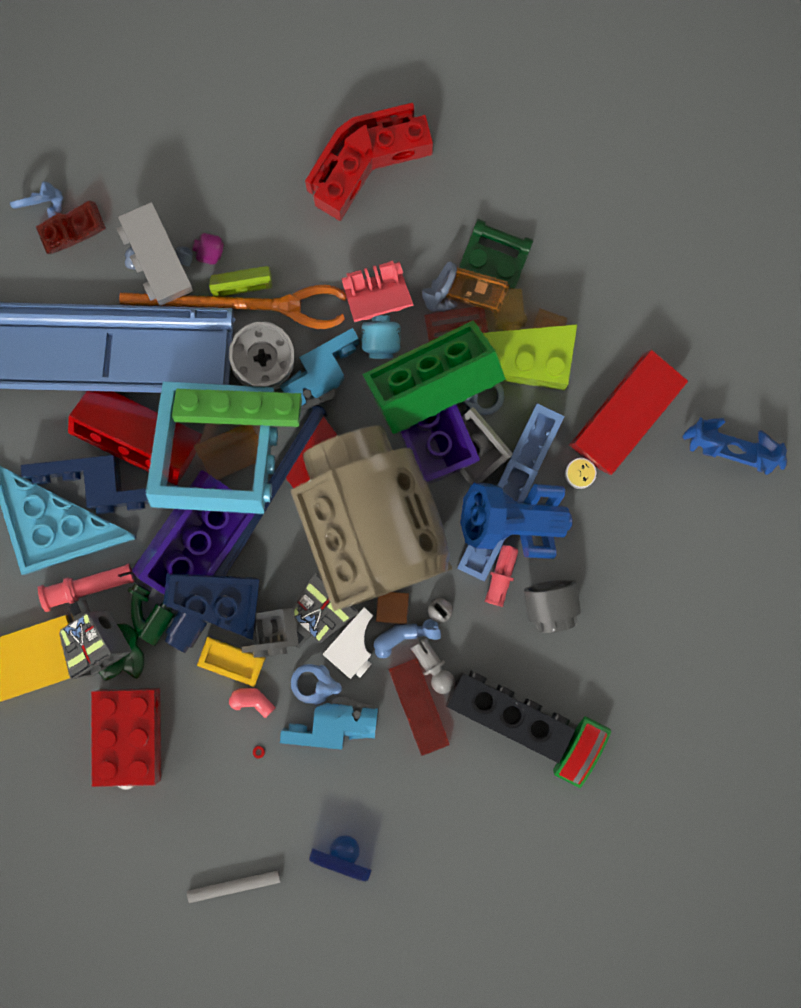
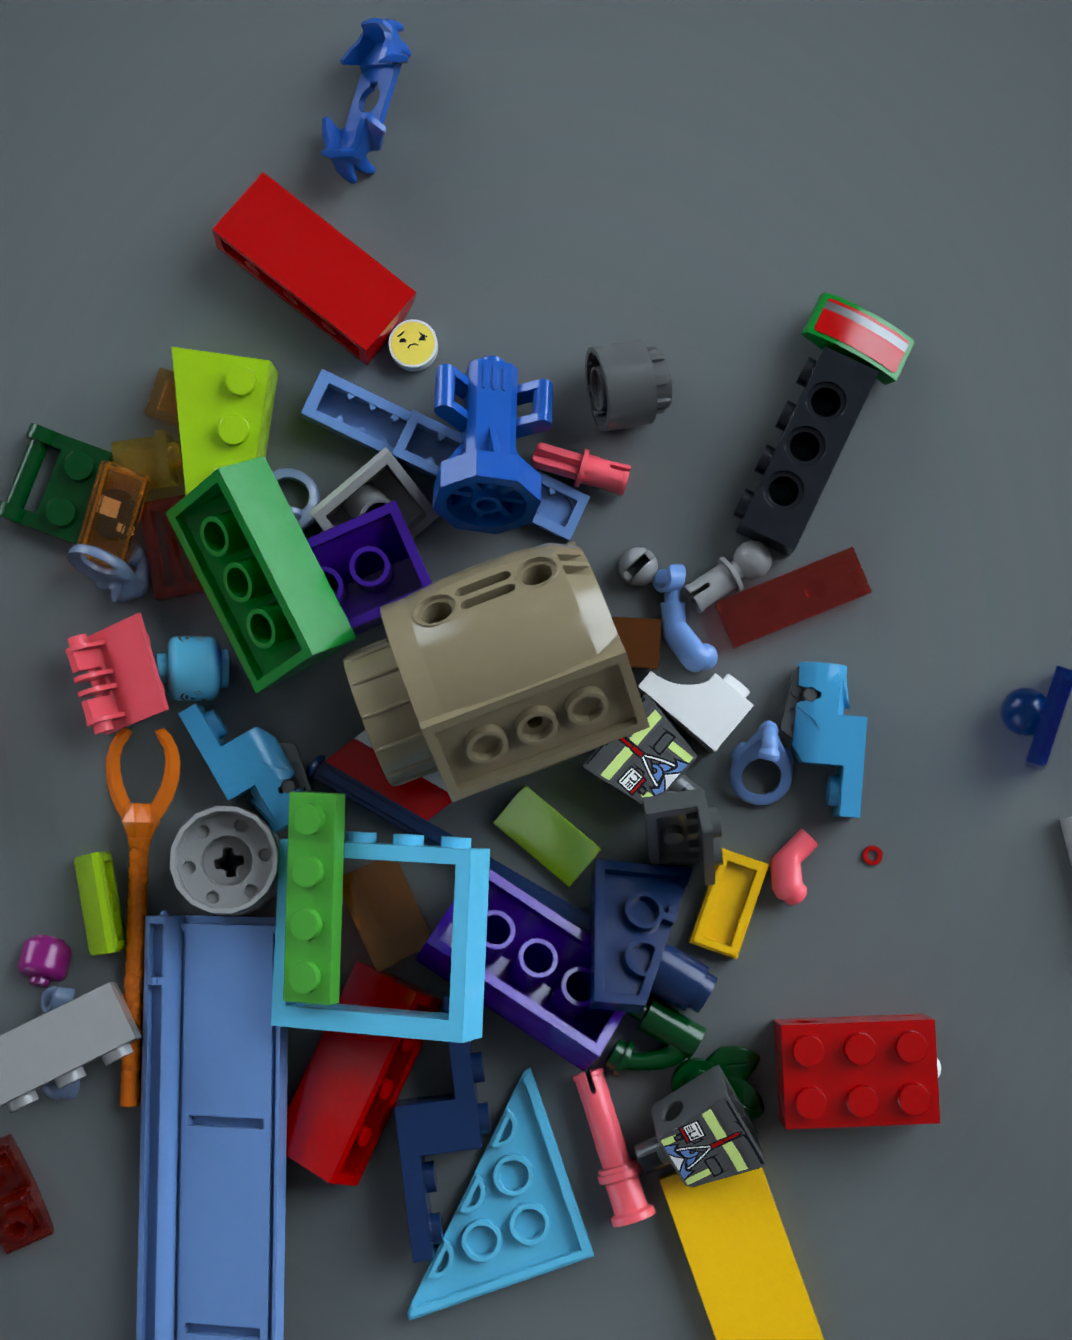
camera: 85 degrees left, 0 degrees up
(275, 551) = (547, 835): none -> lime slope

